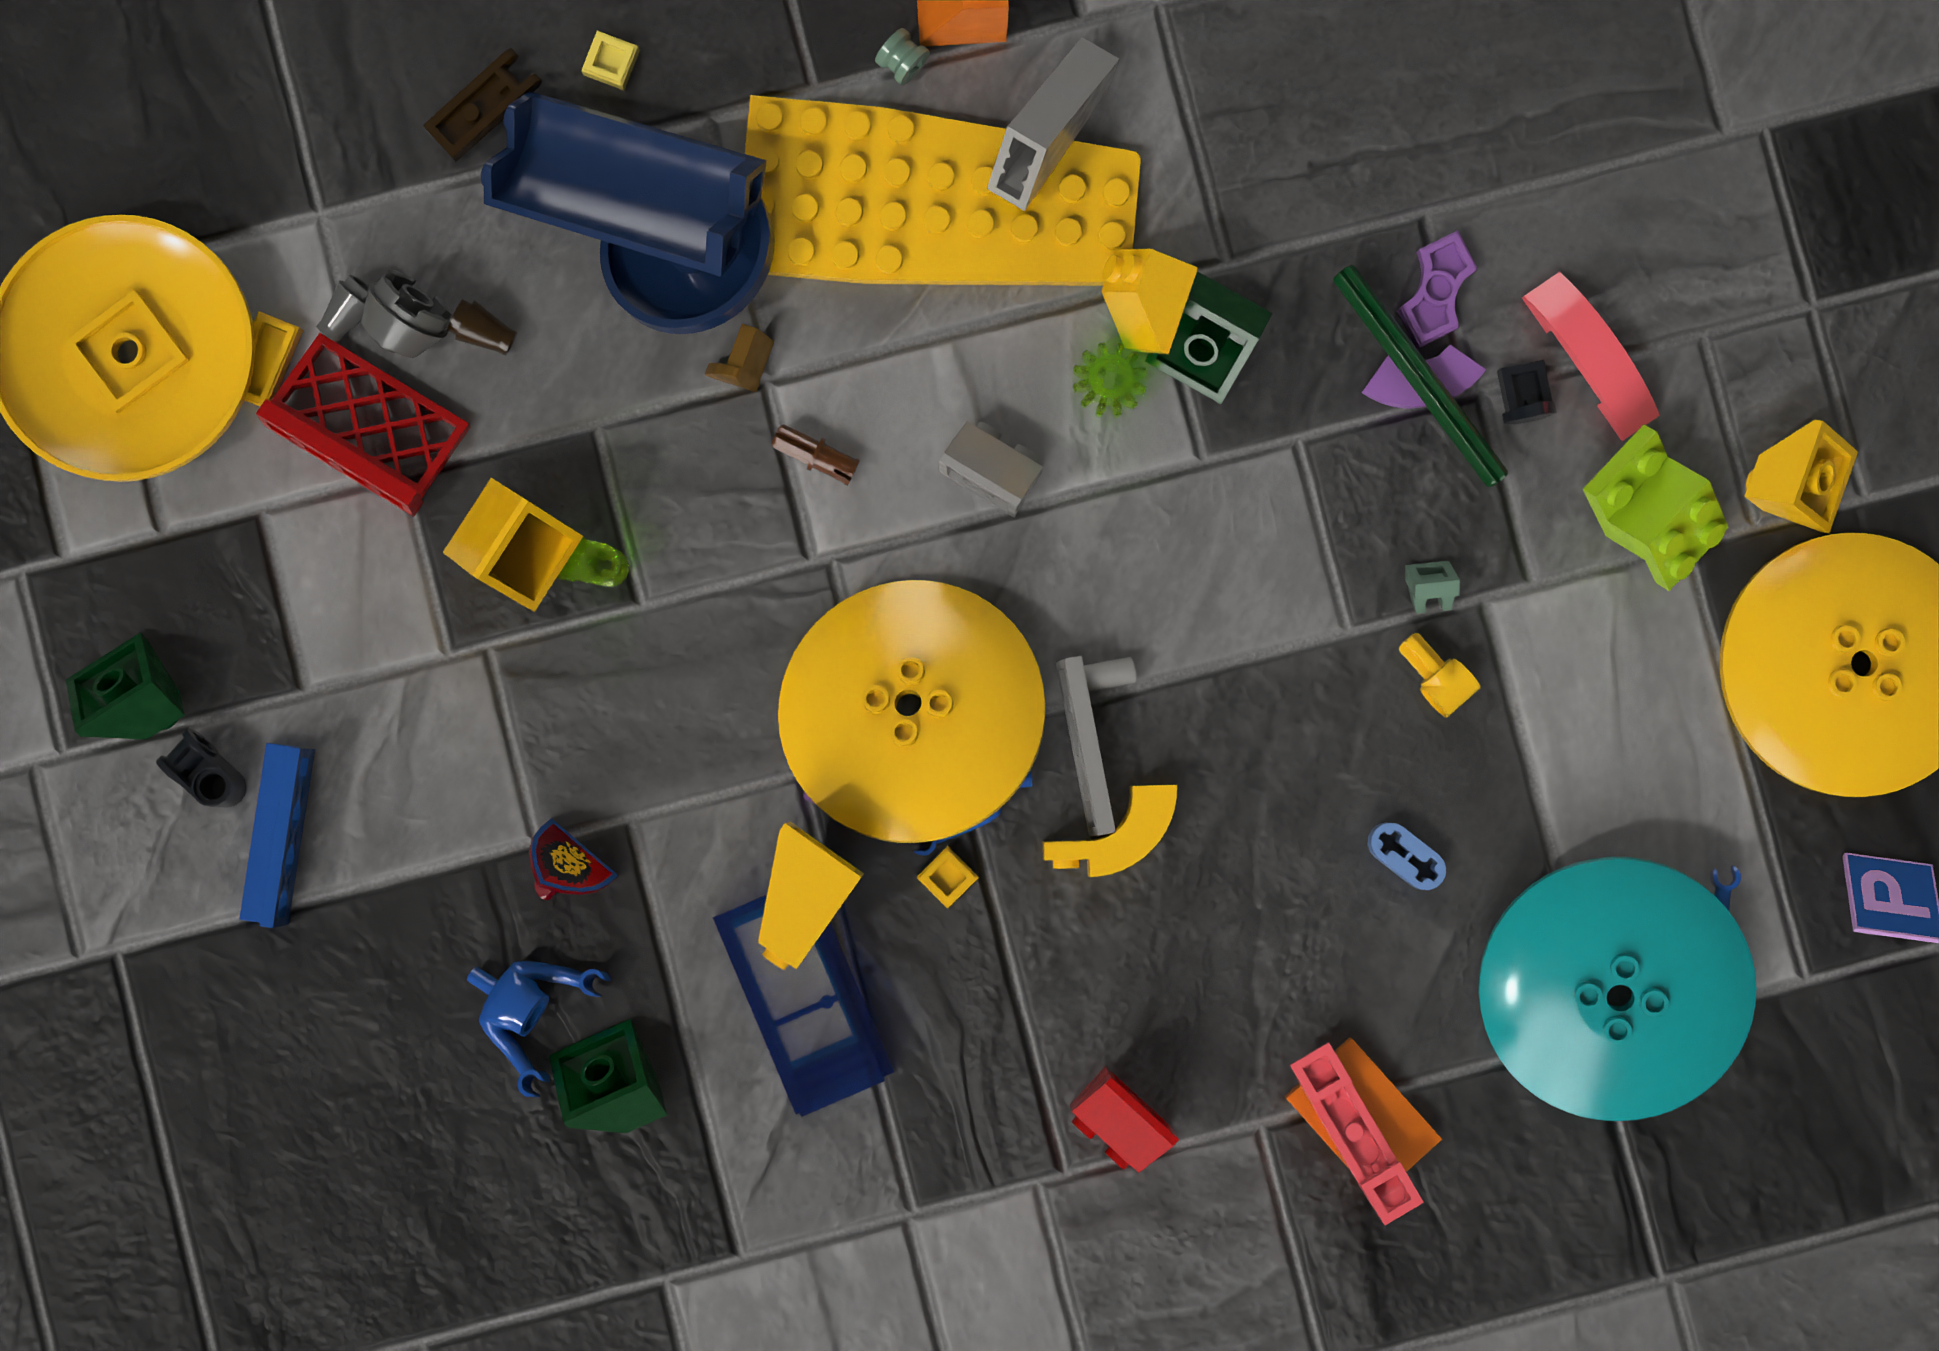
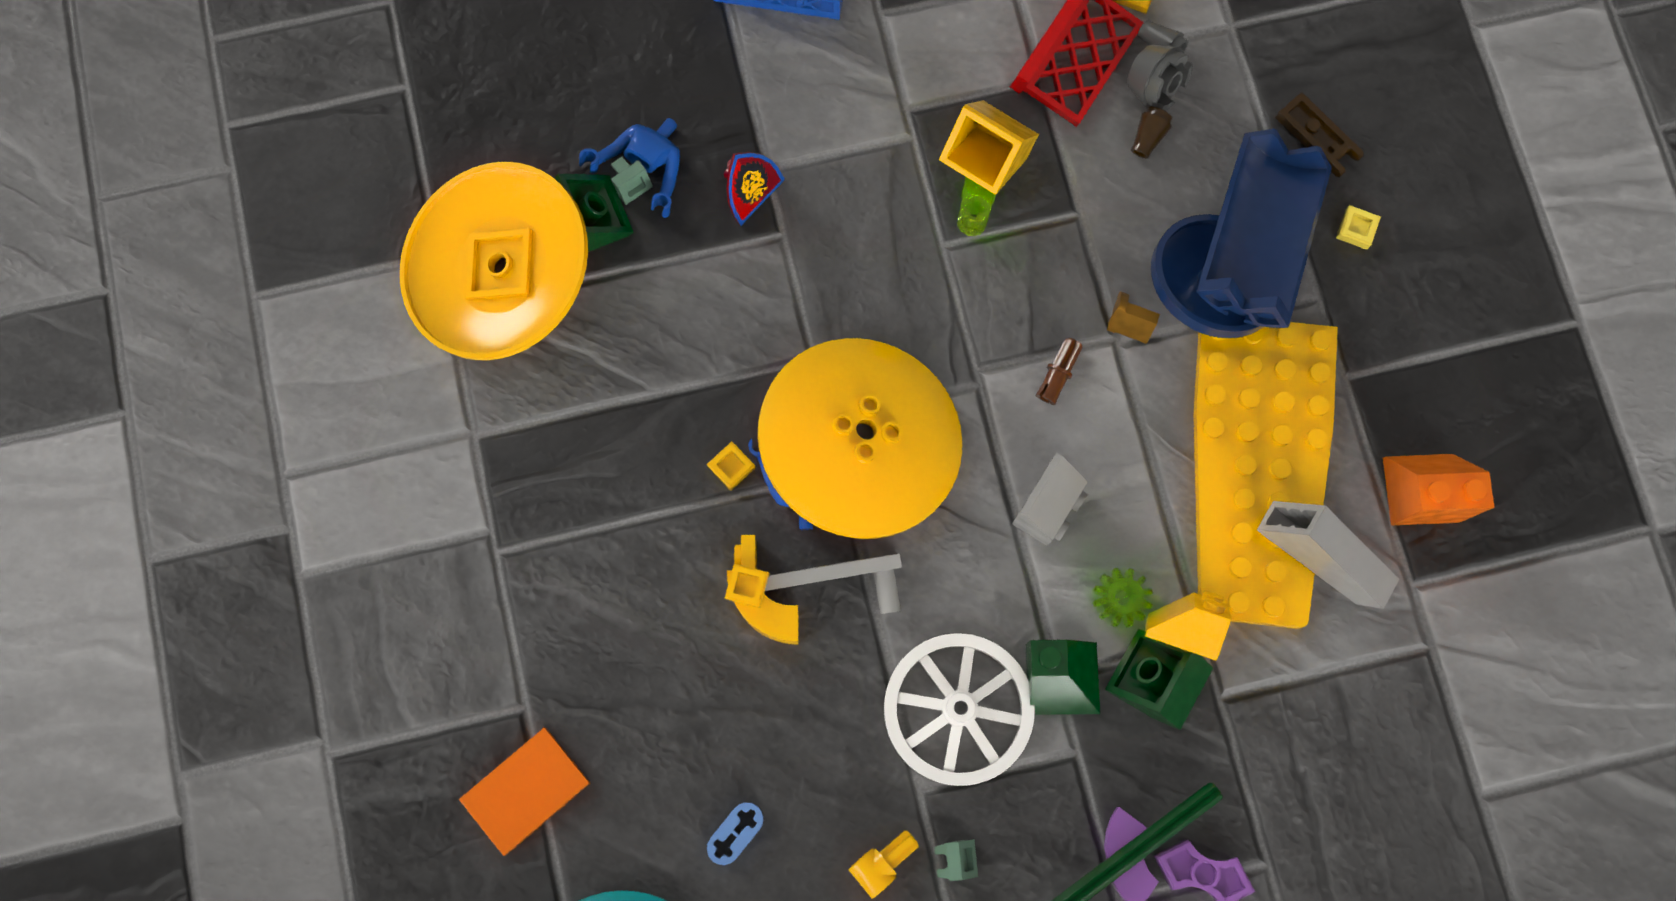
camera: 95 degrees right, 10 degrees down
(560, 1026) = (630, 180): none -> sand green tile
(672, 1259) = (460, 237): none -> yellow dish
(802, 895) = (720, 342): yellow slope -> none
(807, 1014) = (644, 356): clear blue piece -> none
(902, 56) = (1374, 441): sand green wheel -> none
(1111, 850) = (747, 585): none -> yellow tile
(1122, 1121) = (534, 594): red slope -> none
(1208, 455) = (1063, 677): none -> dark green slope
(1238, 592) = (949, 716): none -> white wheel
(1355, 1134) = (511, 781): coral slope -> none

